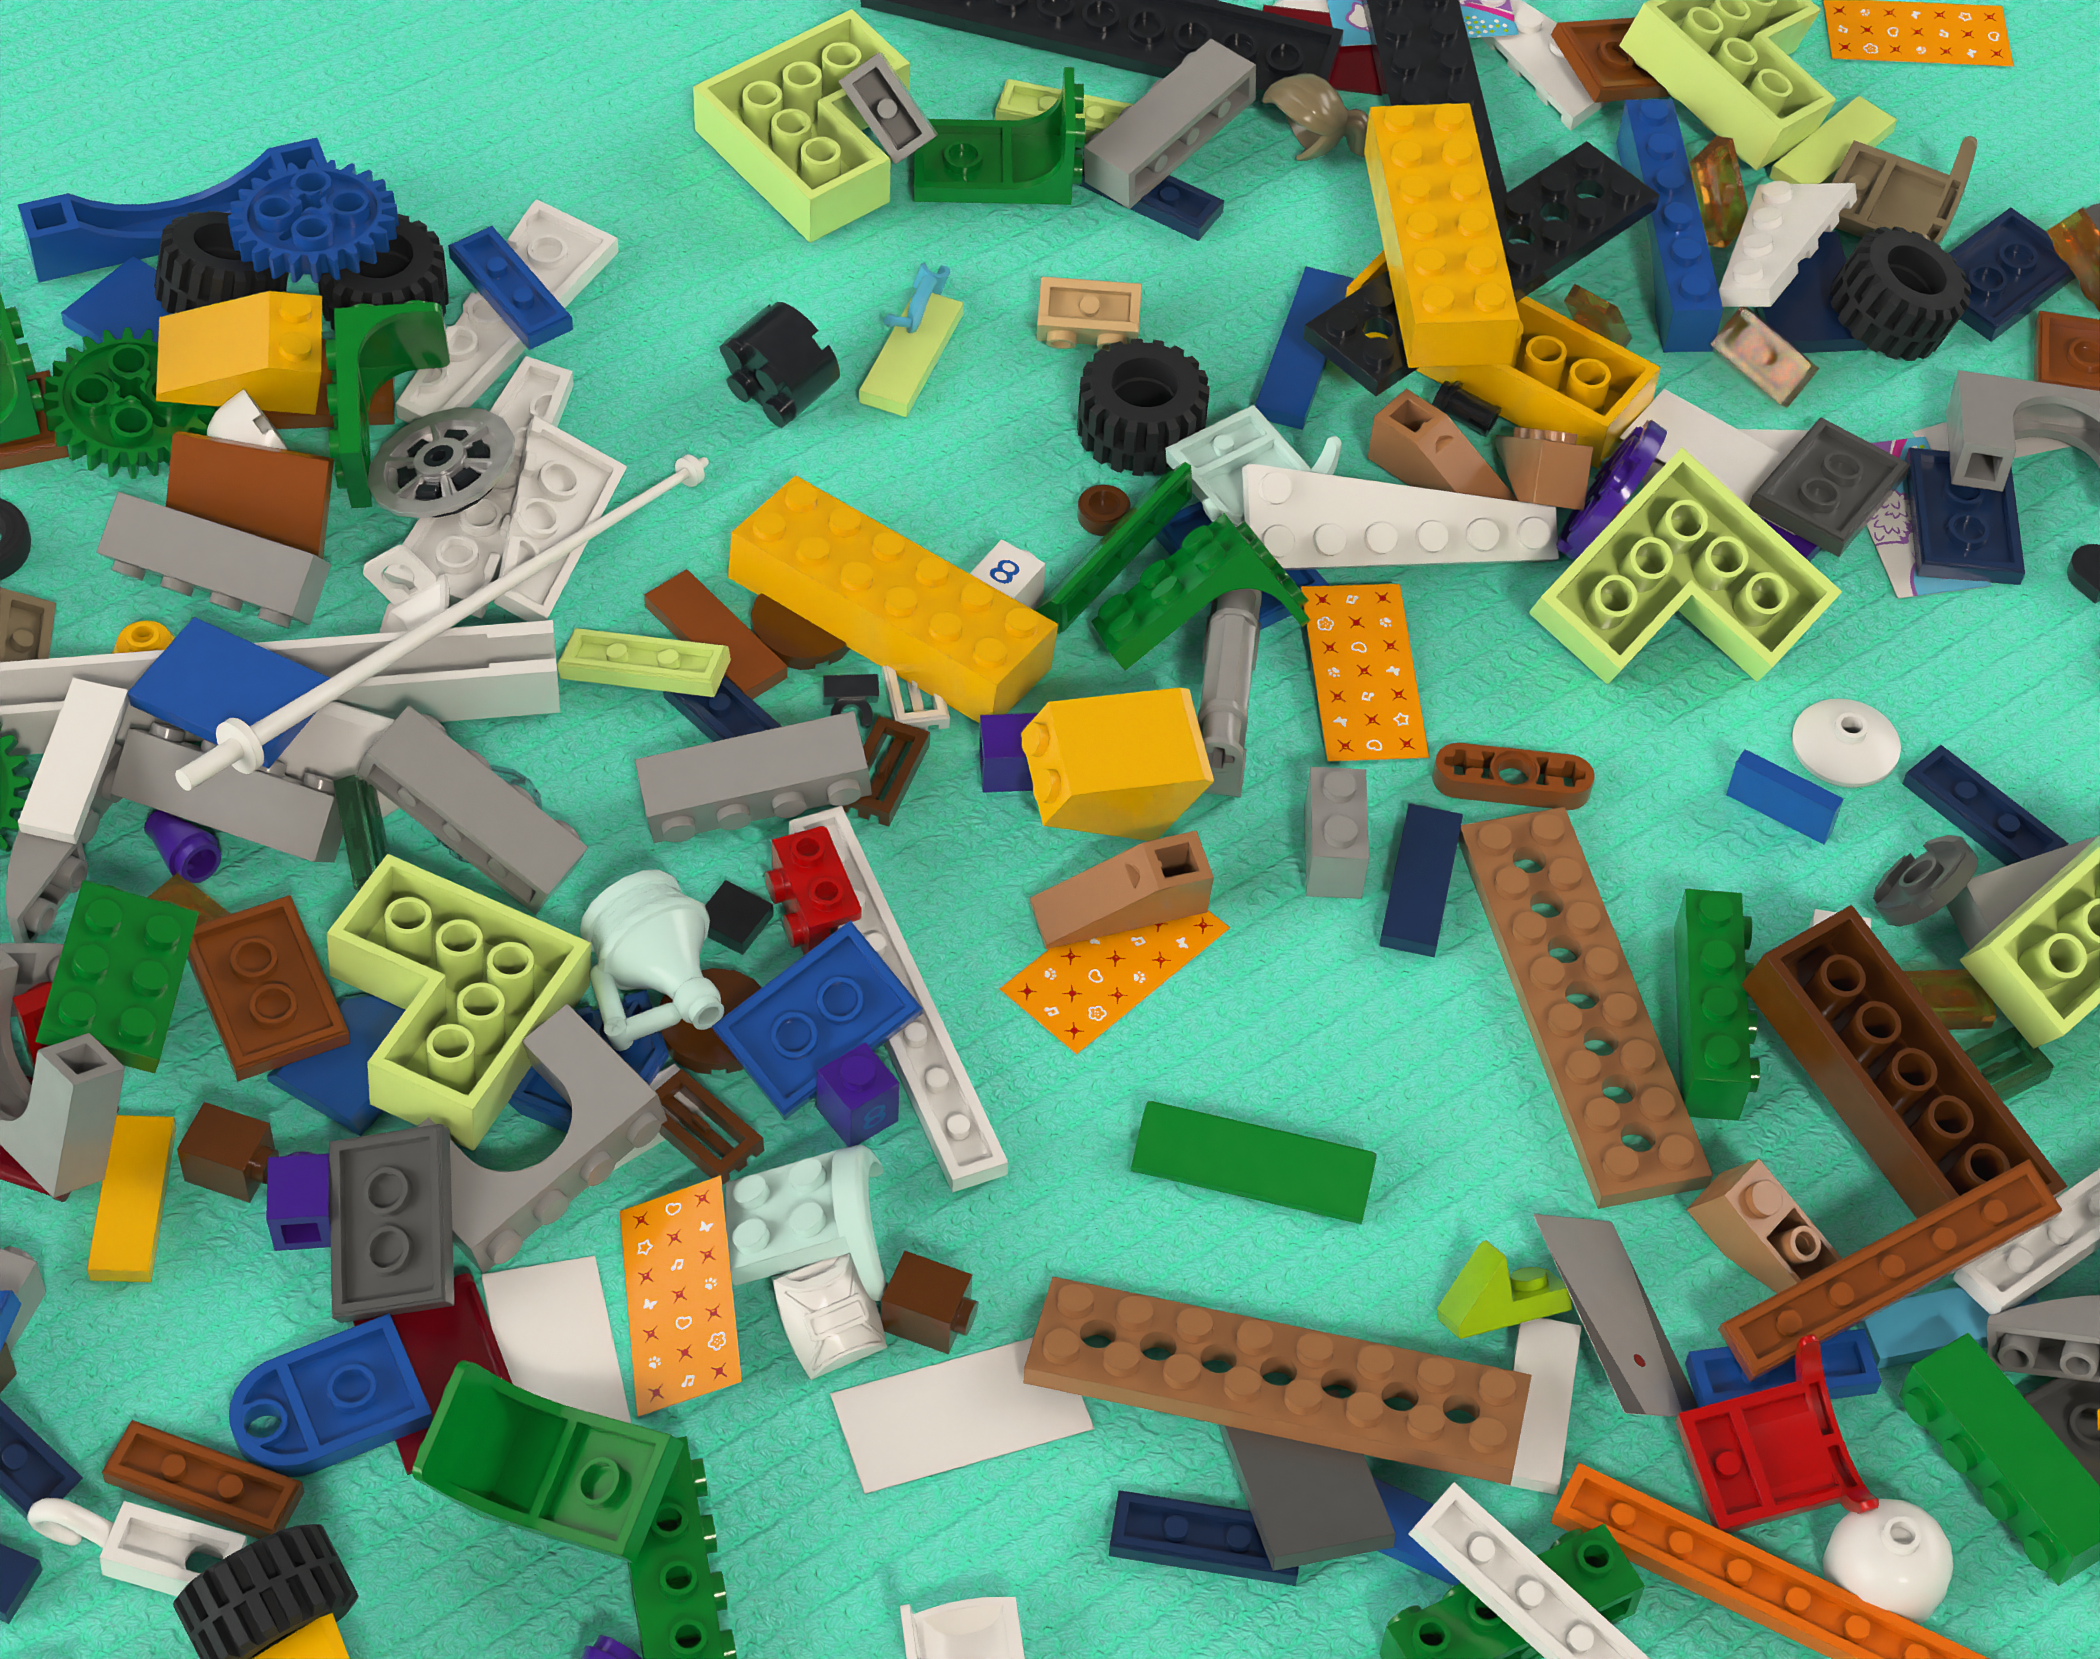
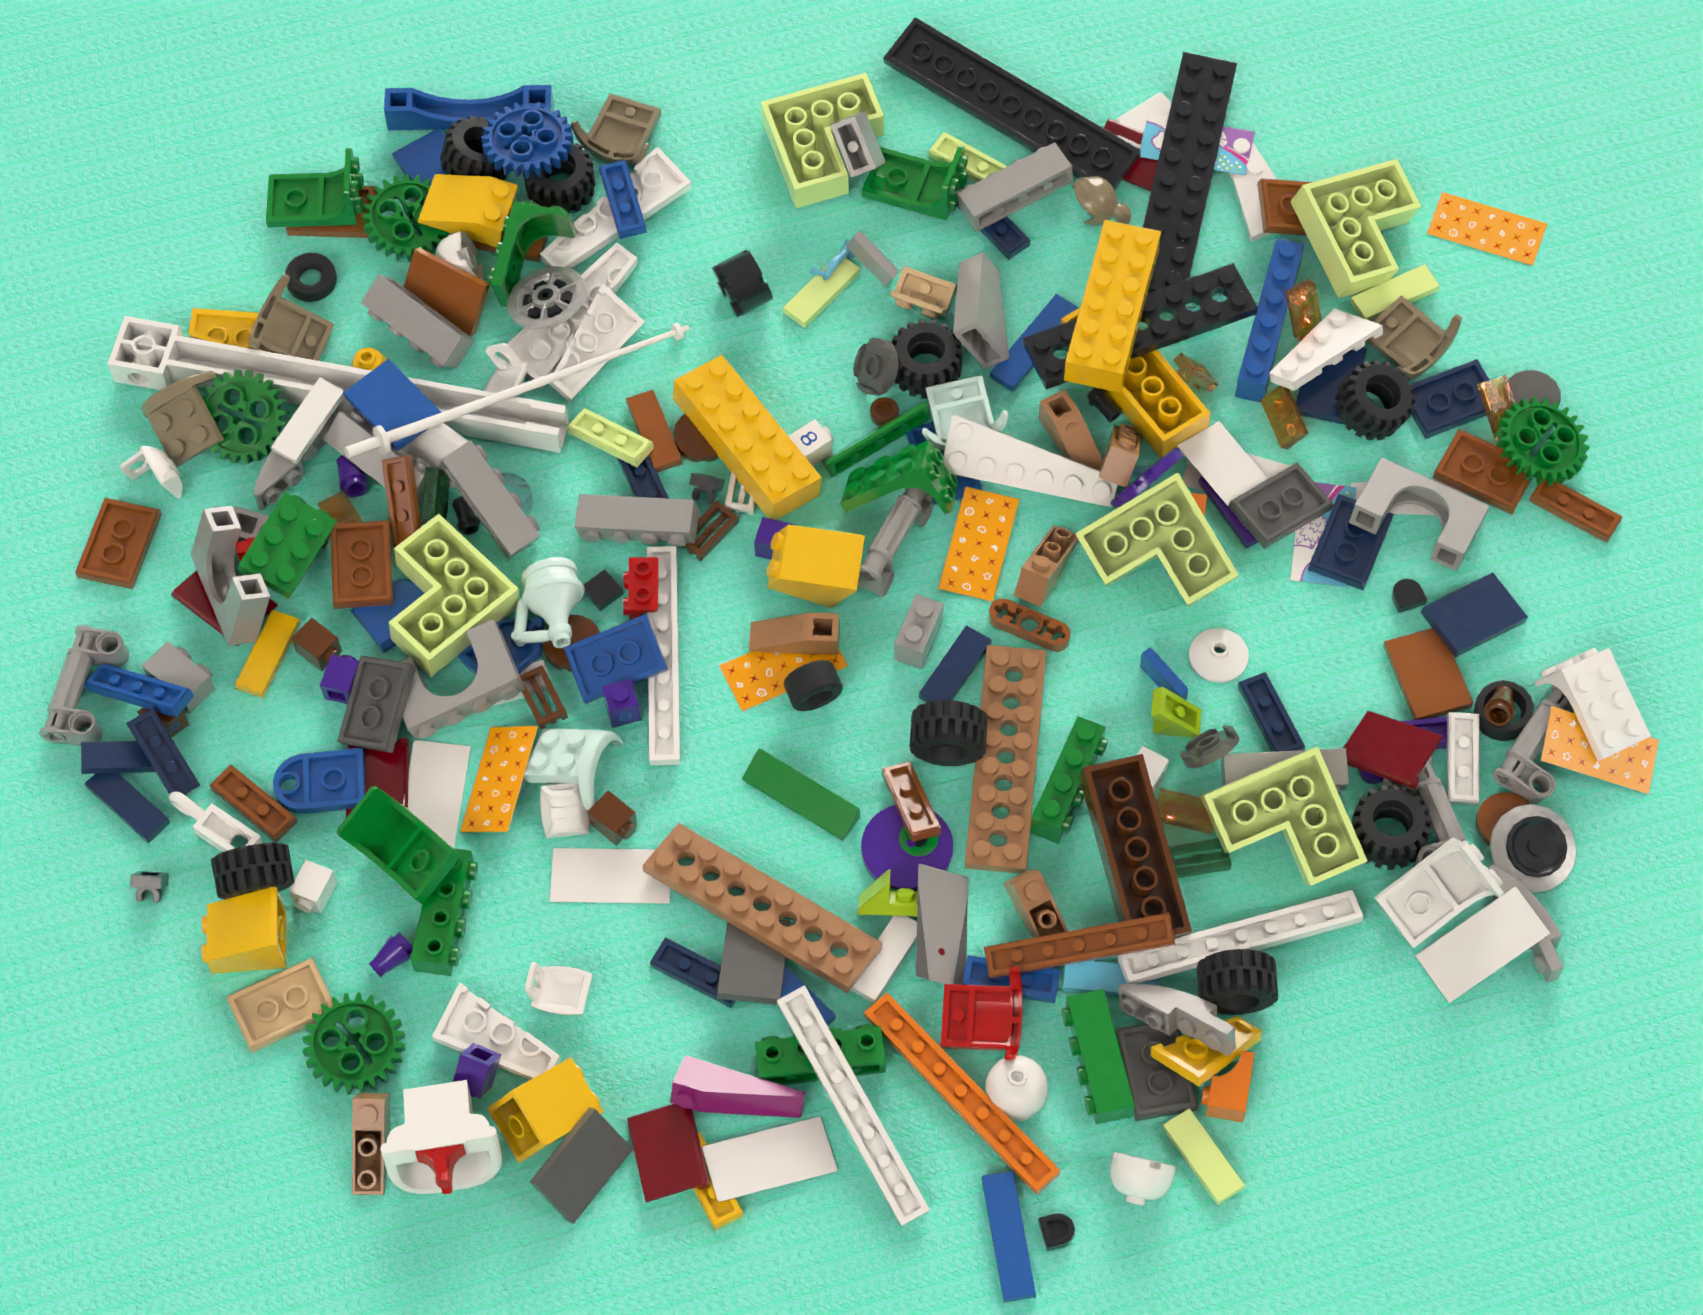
camera: 25 degrees right, 10 degrees up
(301, 850) = (401, 497): none -> dark orange tile
(390, 1603) = (312, 887): none -> white brick
(426, 853) = (467, 521): none -> black pin
(464, 188) = (620, 131): none -> dark tan piece
(983, 278) = (872, 258): none -> light grey tile
(1067, 436) = (876, 366): none -> dark grey tile
(1197, 967) = (813, 685): none -> black tyre
(1203, 314) = (980, 312): none -> light grey slope
(1459, 1117) = (911, 801): none -> tile
(1478, 1186) = (888, 846): none -> dark purple tile
(1479, 977) = (948, 733): none -> black tyre
(1497, 675) = (1045, 565): none -> medium nougat slope
(1830, 852) = (1174, 715): none -> lime slope

